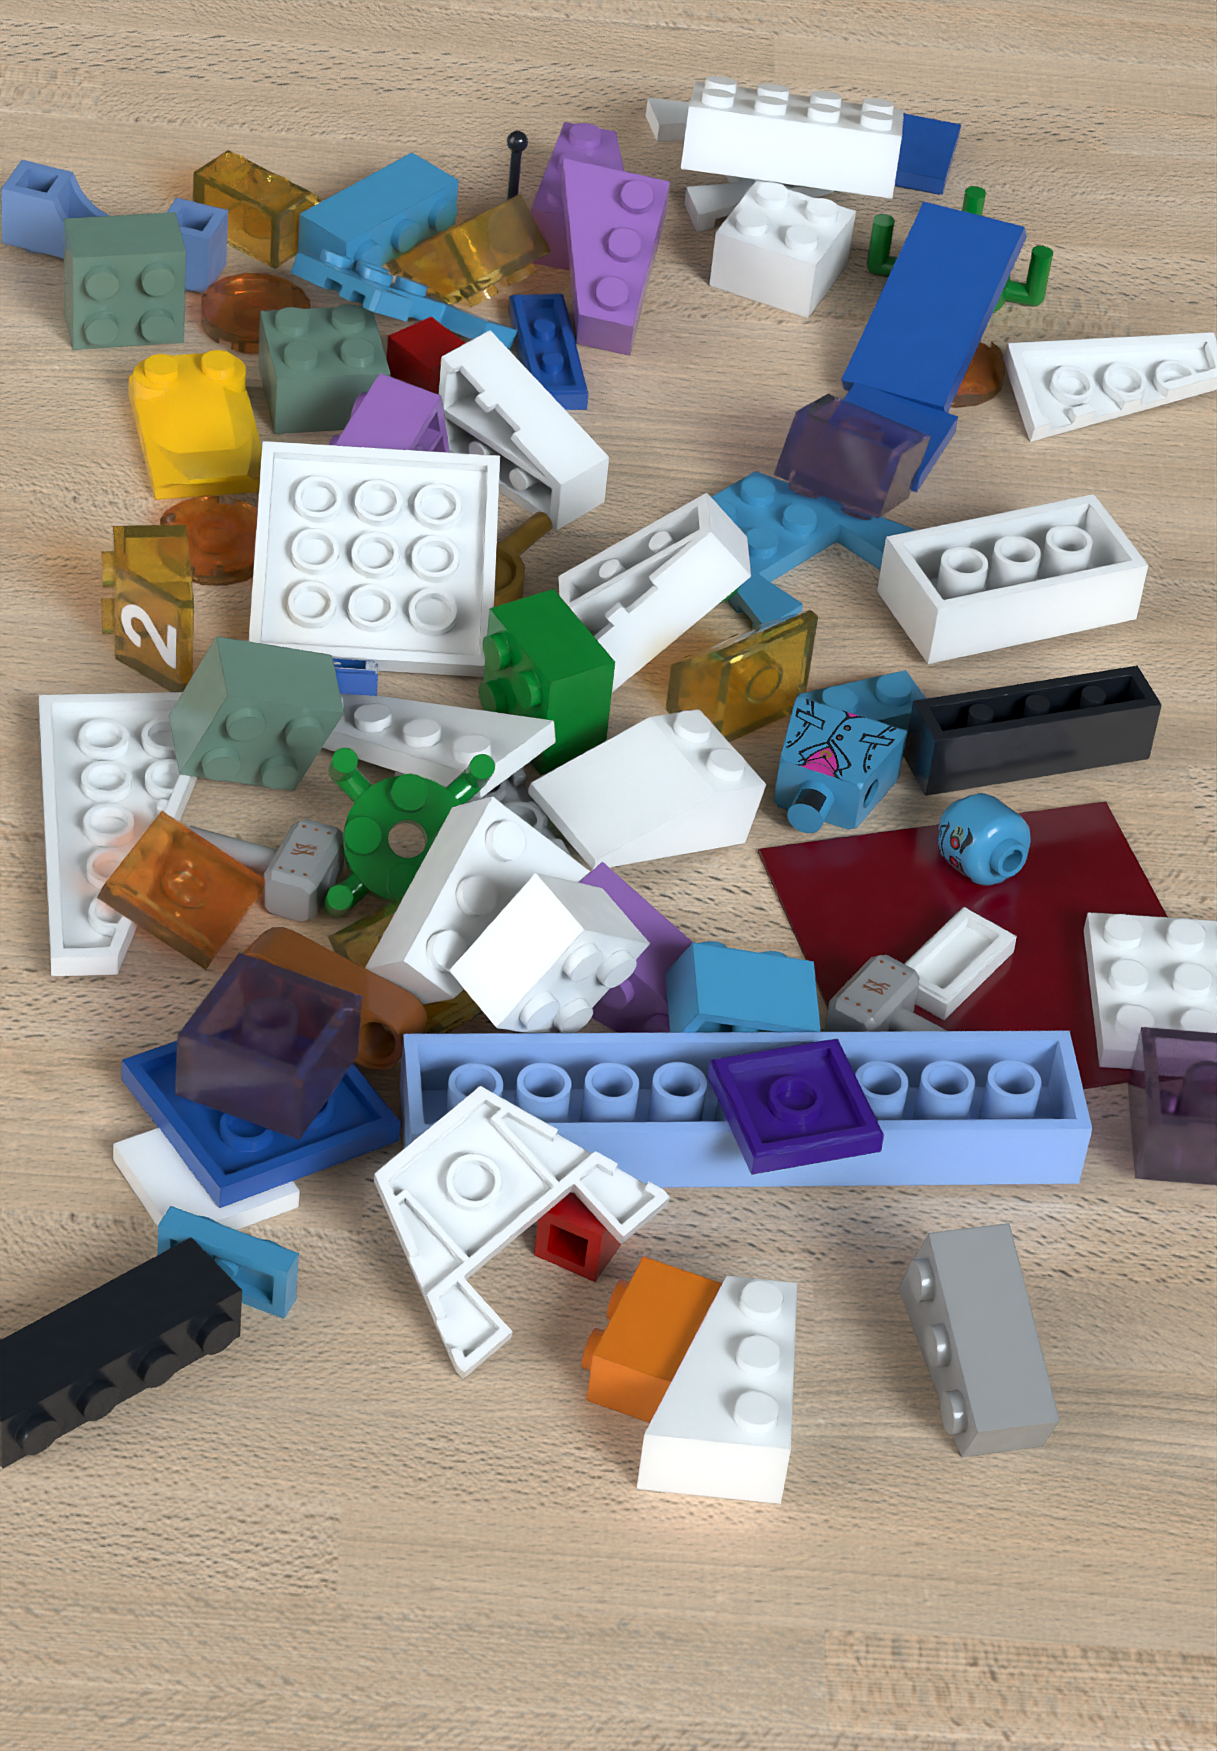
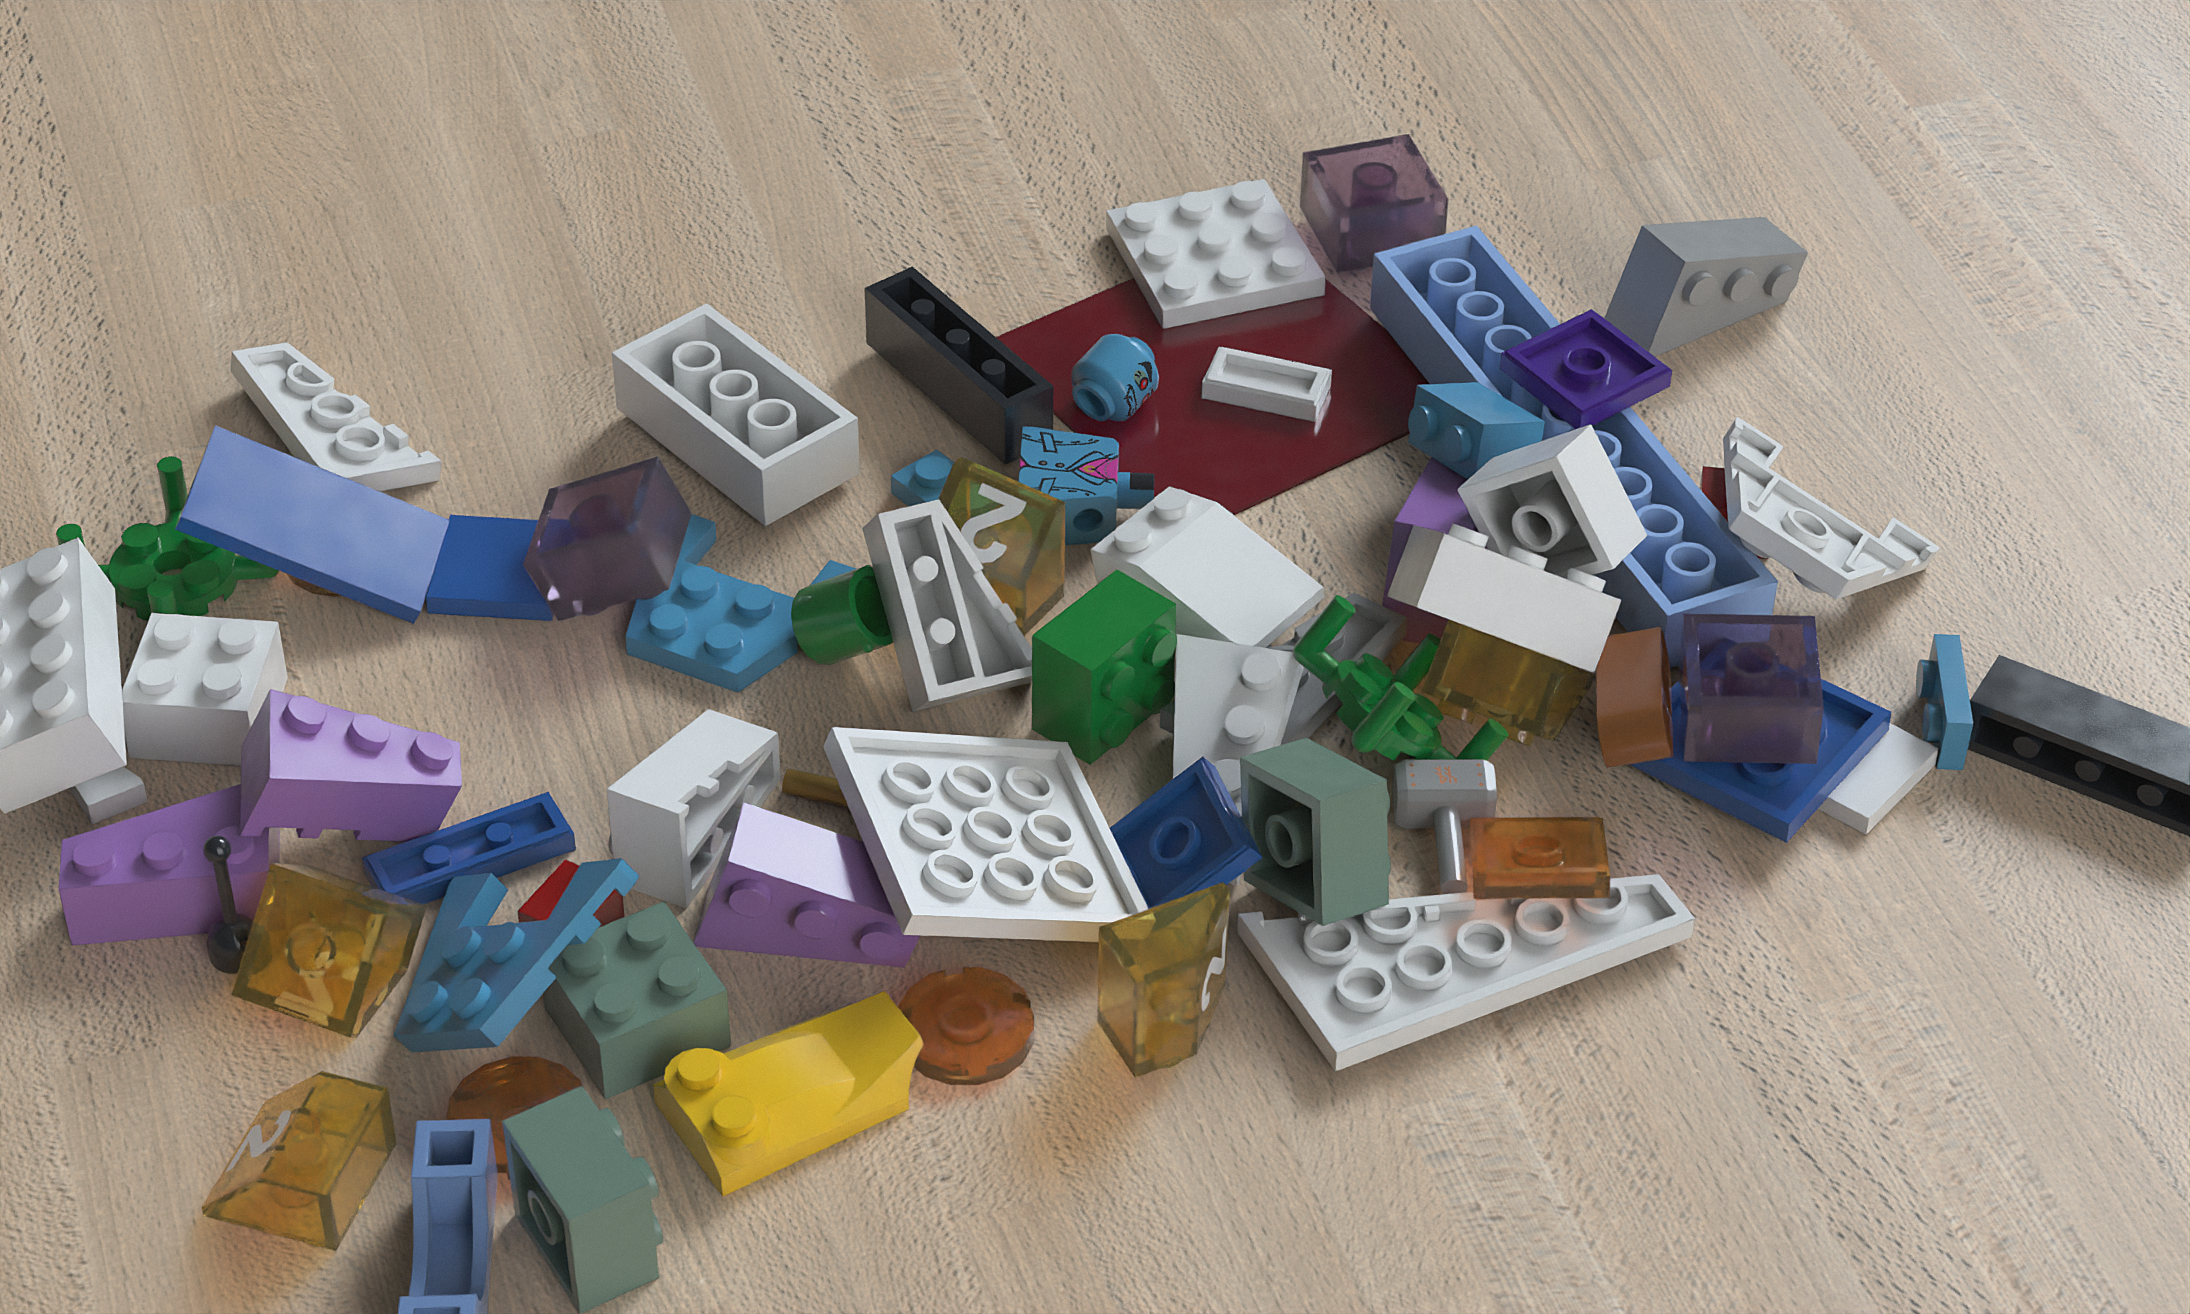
camera: 105 degrees left, 0 degrees up
(382, 213) = (276, 1036): dark azure brick -> none
(646, 1337) = (1836, 446): orange brick -> none
(731, 1400) = (1855, 387): white wedge -> none
(878, 1000) = (1372, 403): light grey piece -> none

